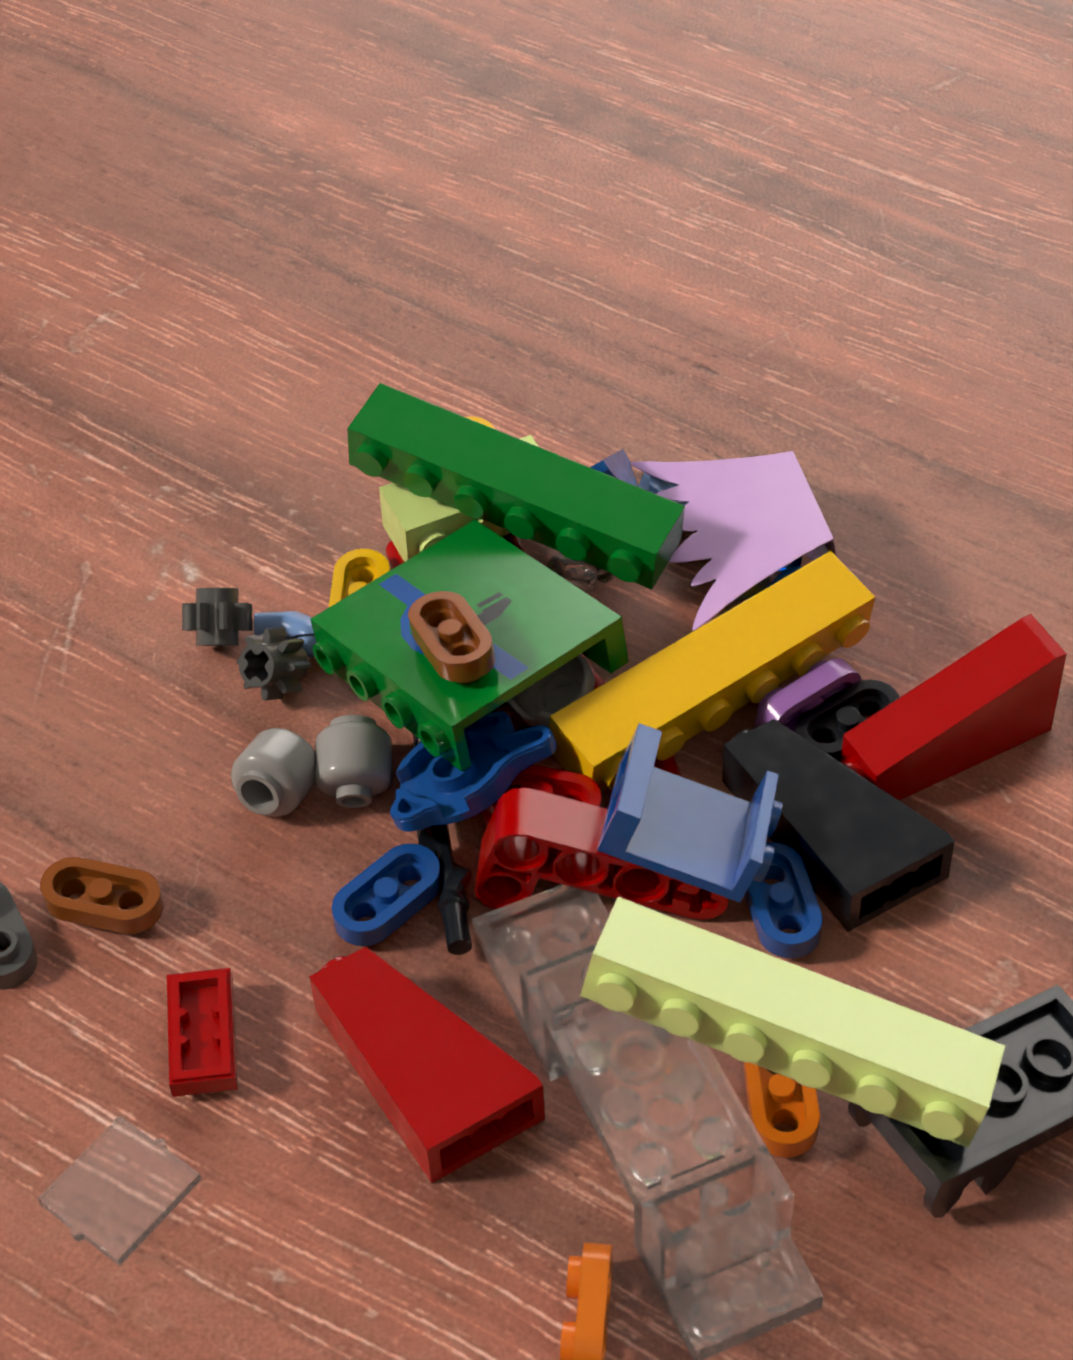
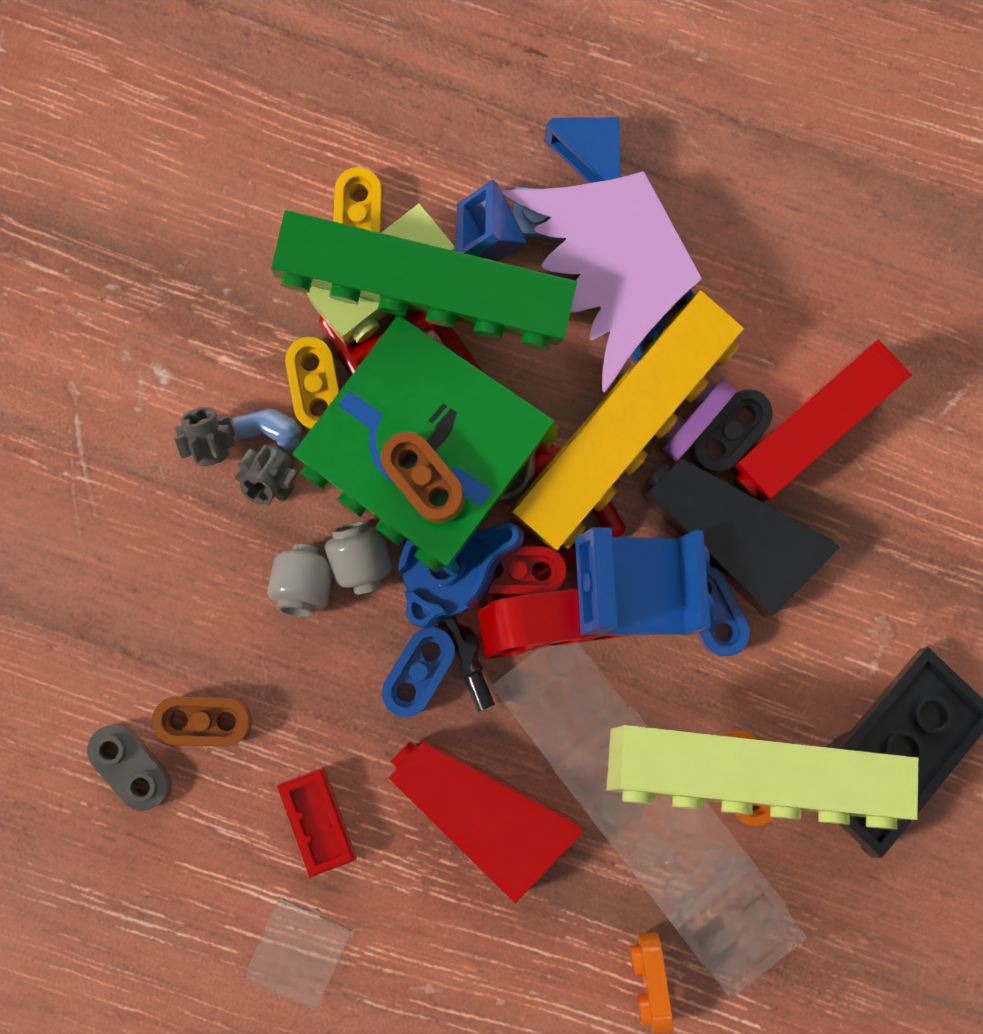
camera: 20 degrees left, 35 degrees up
(734, 429) = (587, 145): none -> blue slope

